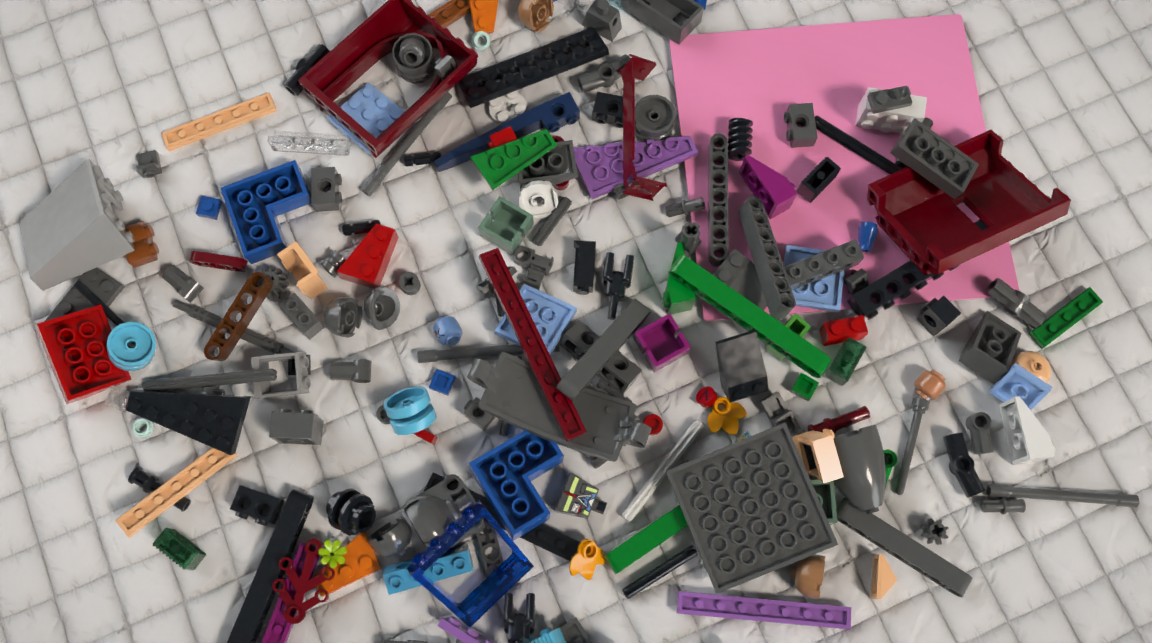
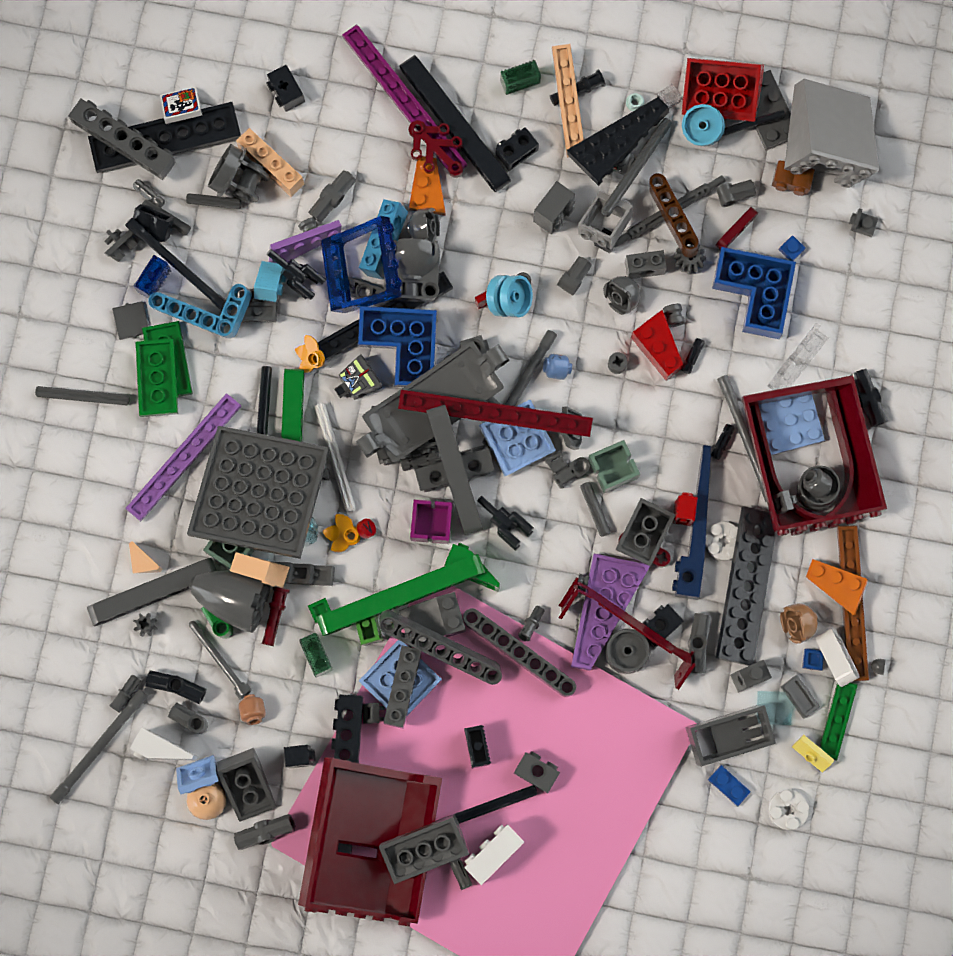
camera: 125 degrees right, 5 degrees up
(218, 121) = (868, 300): light nougat tile -> none
(302, 268) = (678, 289): light nougat piece -> none
(321, 179) = (739, 337): dark grey brick -> none
(336, 552) = (439, 181): lime plant -> none
(350, 512) = (462, 208): black piece -> none
(382, 307) = (609, 327): dark grey helmet -> none
(442, 382) = (519, 338): blue tile -> none
(485, 36) = (799, 556): light aqua plate -> none
(508, 159) = (663, 501): green wing -> none
(534, 189) = (625, 501): white plate -> none
(584, 266) = (536, 507): black window -> none
(654, 422) = (375, 474): red tile -> none
(689, 237) = (498, 597): dark grey piece -> none
(739, 138) = (559, 710): black piece -> none
(741, 366) = (367, 565): black slope -> none
(768, 185) = (492, 698): magenta slope -> none
(809, 575) = (181, 504): medium nougat cylinder -> none
(840, 330) = (341, 673): red brick -> none
(867, 235) = (404, 753): blue cone -> none
(890, 99) = (500, 849): dark grey plate -> none
(1065, 317) = (225, 869): green tile -> none

